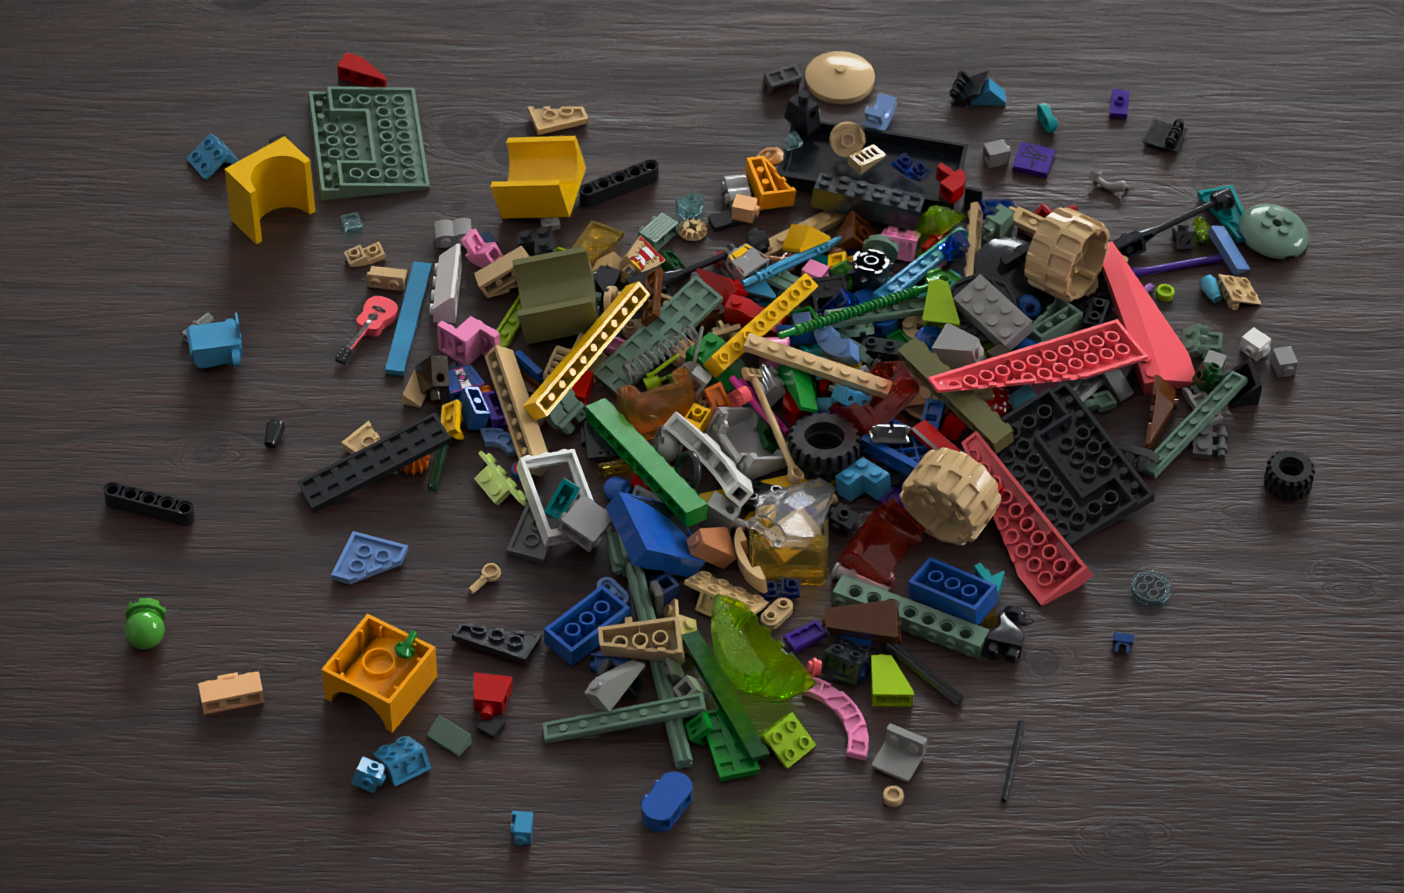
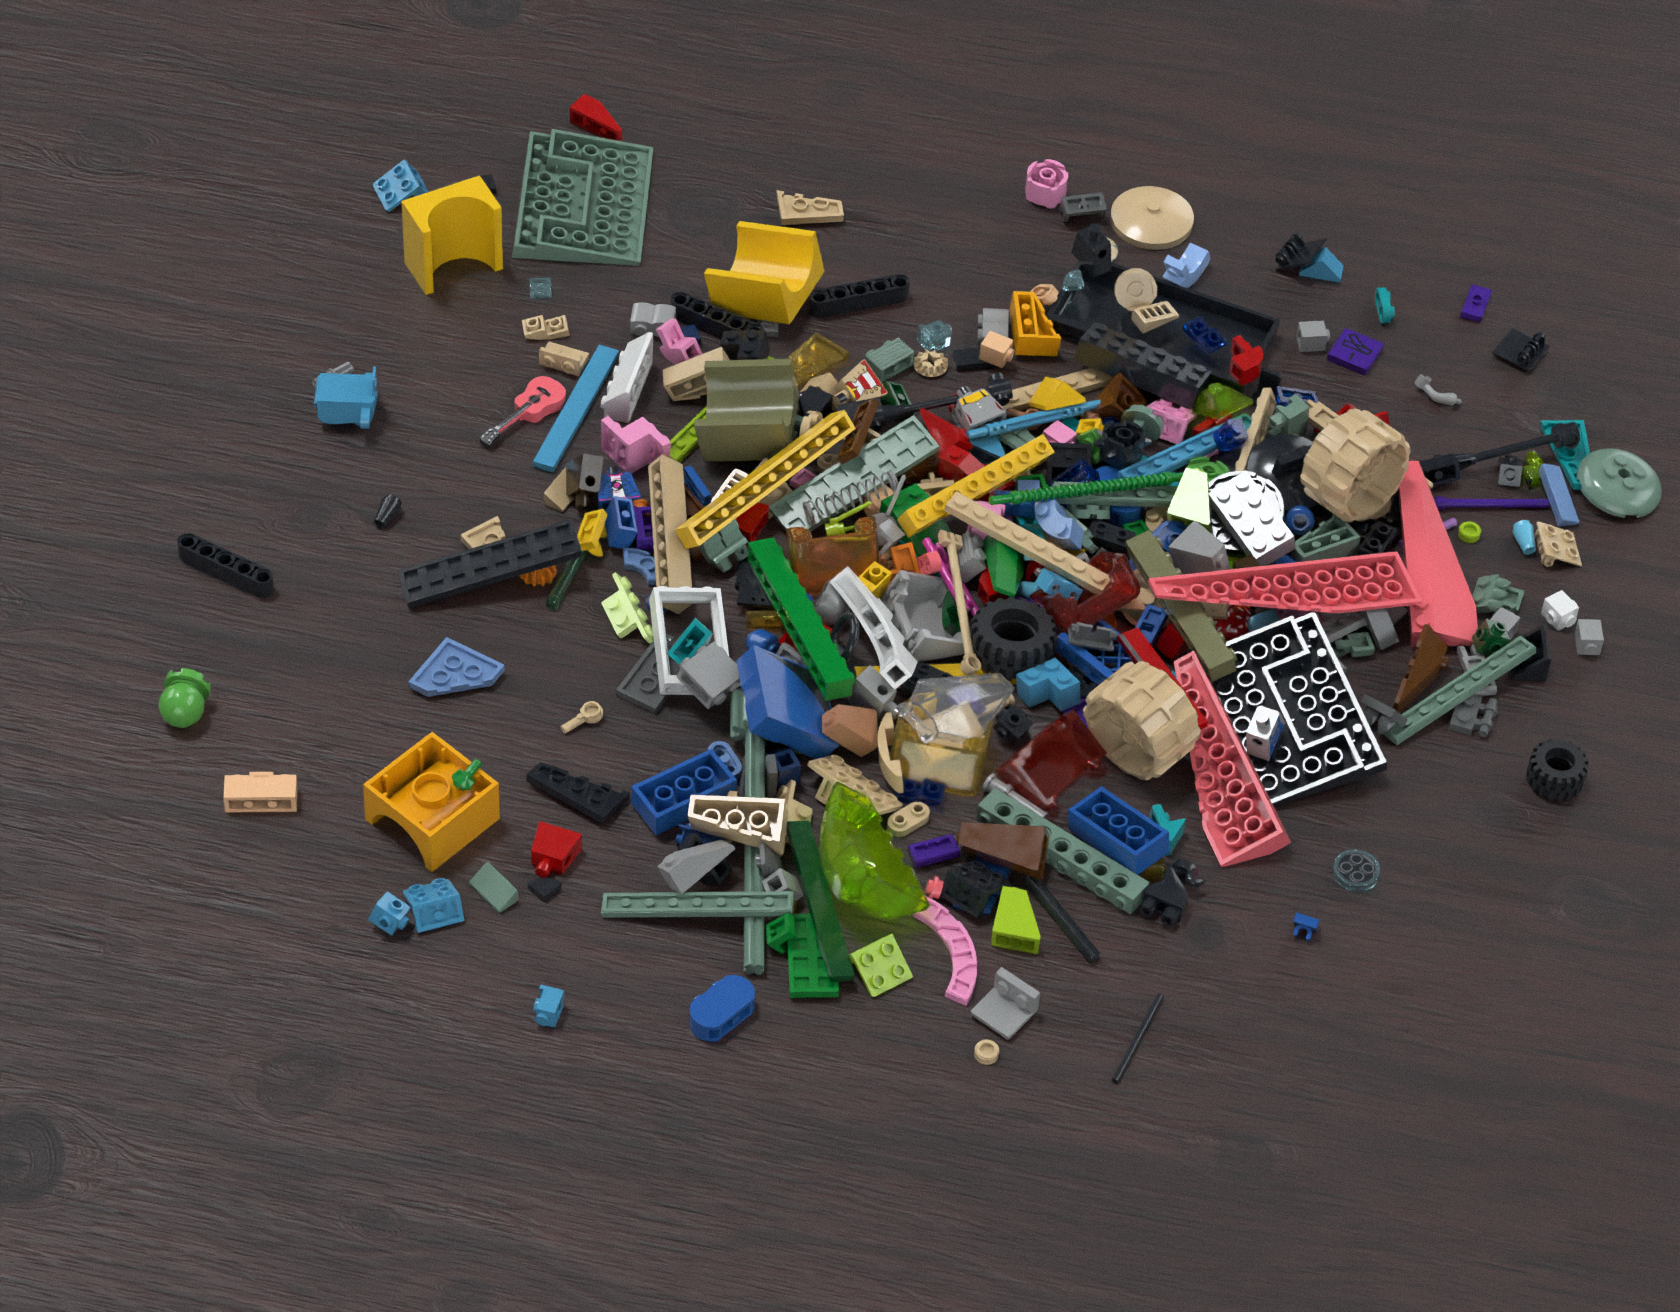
camera: 10 degrees right, 0 degrees up
(500, 222) = (709, 316): none -> black beam
(747, 63) = (1046, 183): none -> bright pink brick
(1050, 484) = (1264, 727): none -> light grey torso

